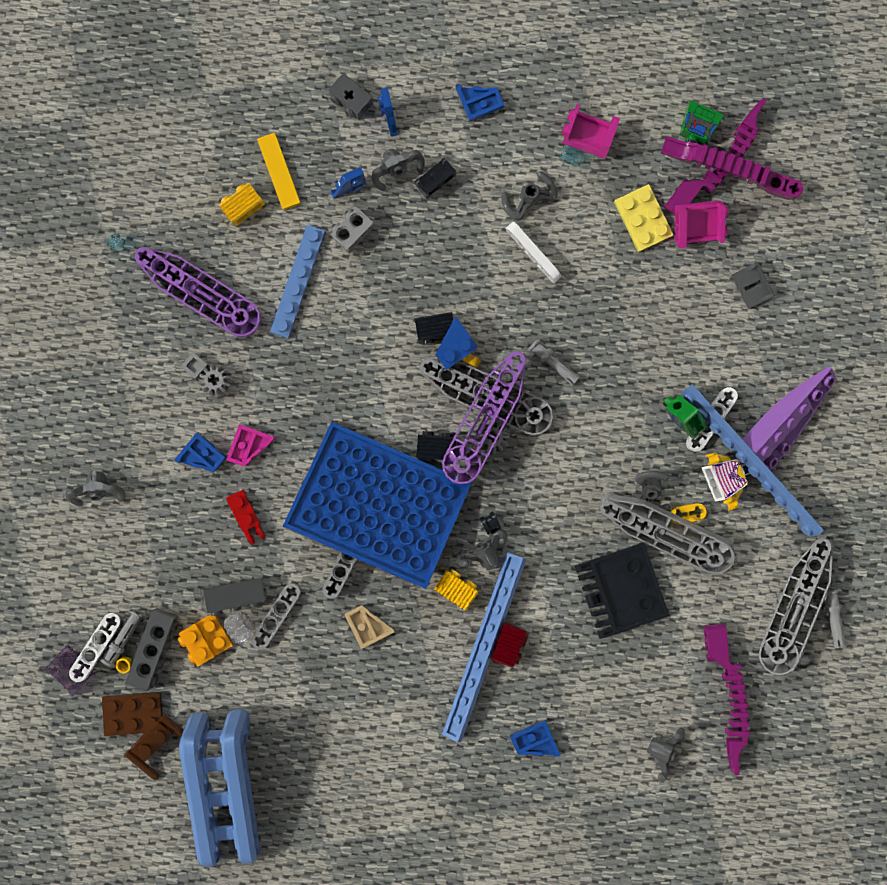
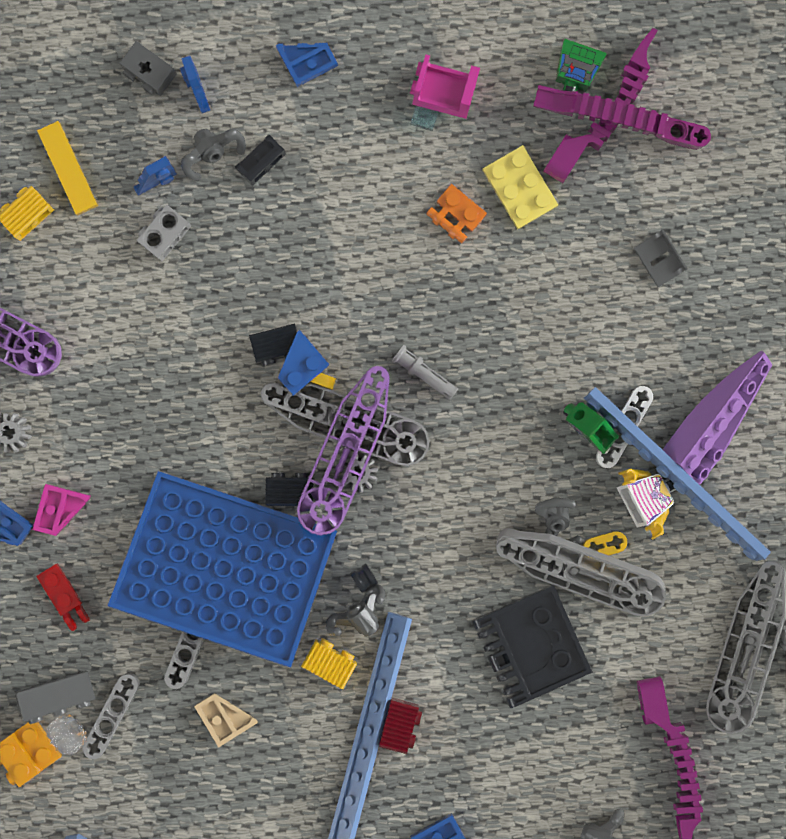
camera: 15 degrees left, 0 degrees up
(297, 281) = (102, 301): medium blue plate -> none
(533, 252) = (388, 241): white beam -> none
(538, 195) = (377, 179): dark grey piece -> none
(594, 231) = (461, 208): none -> orange plate
(700, 222) = (589, 187): dark pink panel -> none

